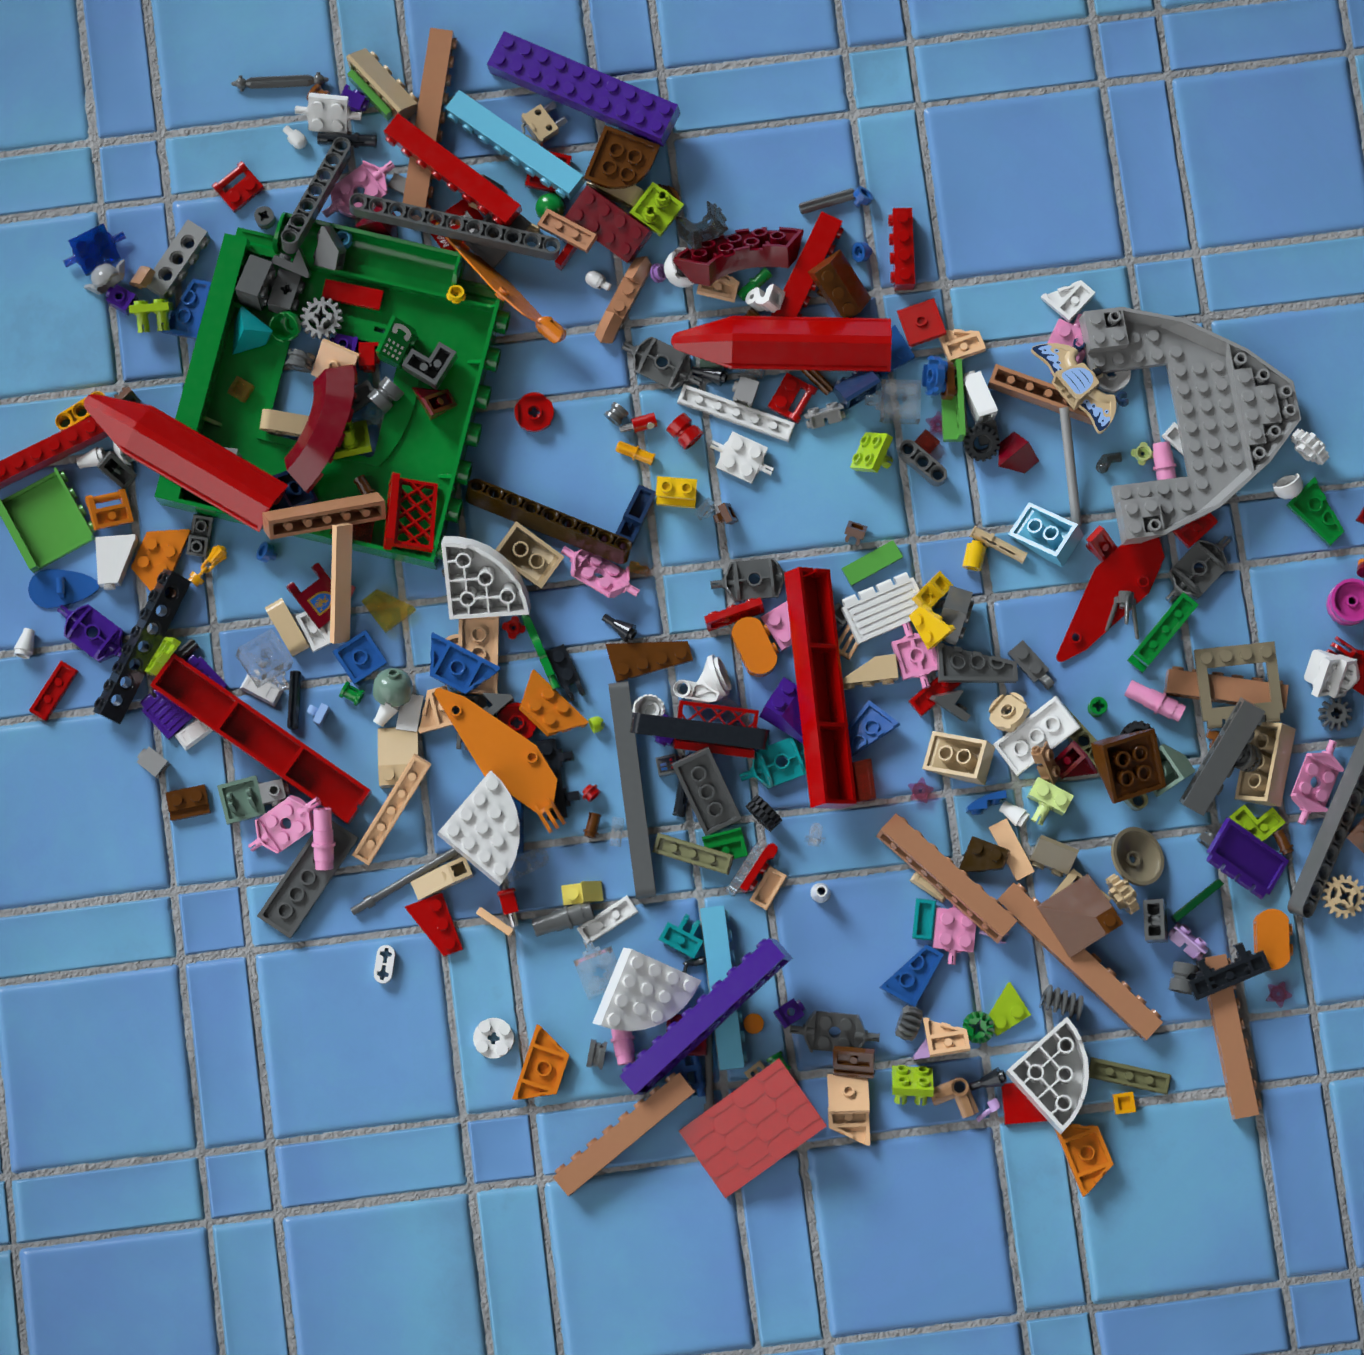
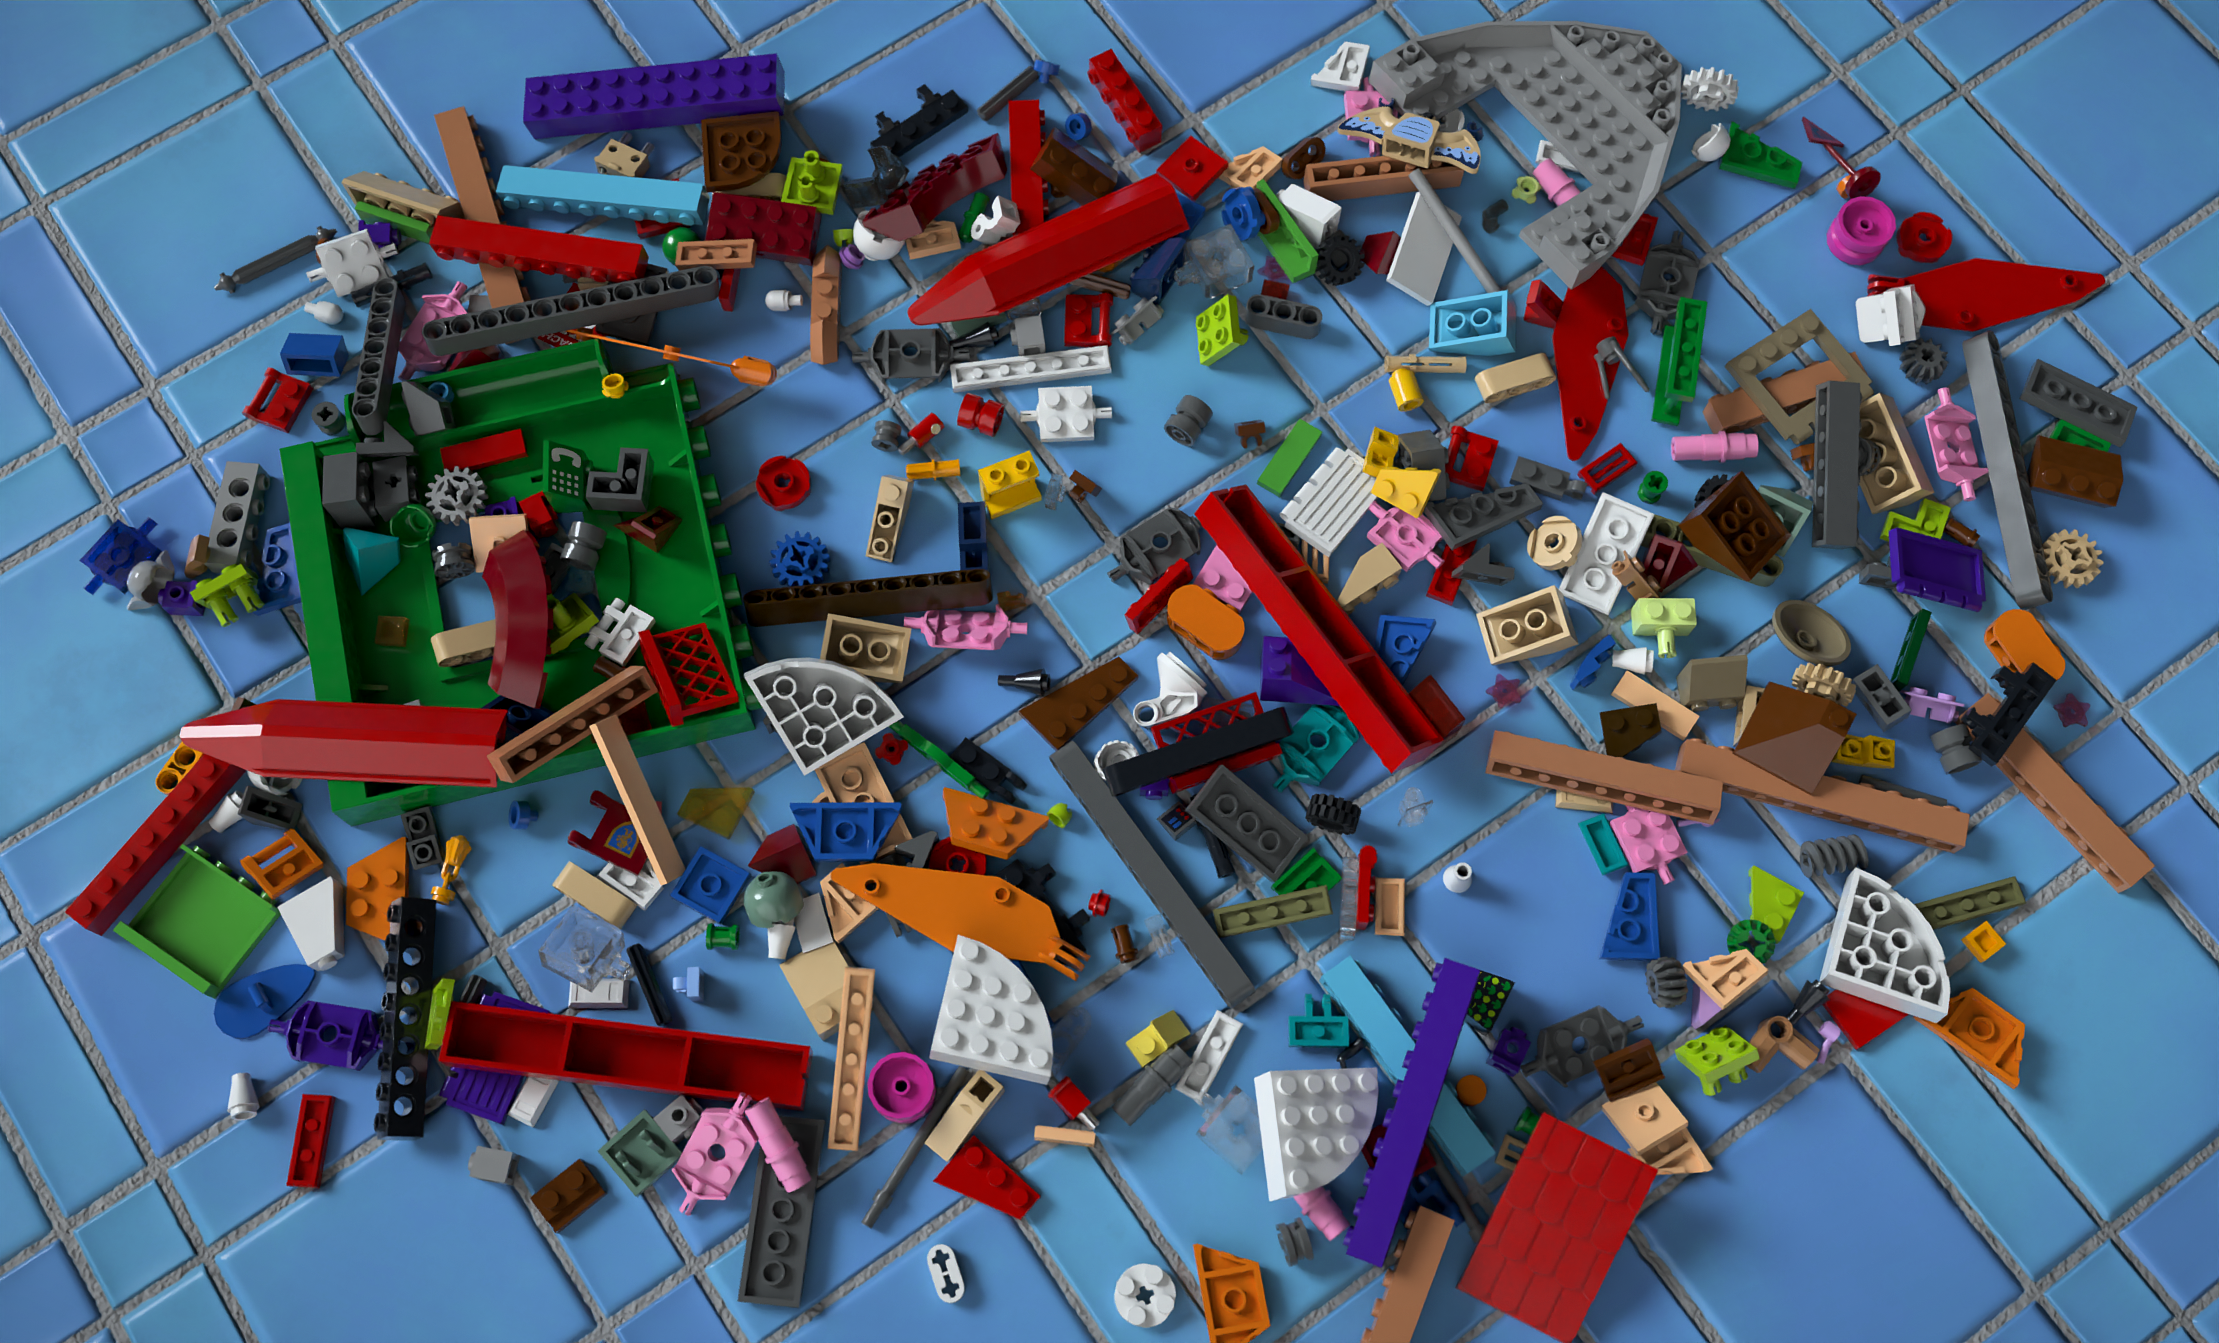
camera: 30 degrees left, 10 degrees down
(275, 168) = (314, 354): none -> blue brick
(381, 470) = (624, 638): none -> white plate
(414, 661) = (784, 853): none -> dark red slope
(416, 854) = (890, 1074): none -> dark pink wheel
(509, 472) = (809, 555): none -> blue gear
(590, 471) = (889, 517): none -> tan slope
(660, 252) = (843, 234): none -> lime hinge
(767, 193) = (934, 116): none -> black hinge
(792, 974) = (1488, 1001): none -> black torso
(818, 504) = (1190, 419): none -> dark grey wheel
(994, 628) = (1476, 461): none -> red plate
(1001, 353) = (1300, 157): none -> reddish brown plate
(1041, 464) = (1421, 253): none -> white tile
(1052, 585) = (1515, 378): none -> tan beam
(1060, 680) = (1590, 480): none -> red tile
(1126, 948) = (1866, 752): none -> yellow slope
(1135, 986) = (1907, 792): none -> dark grey bar

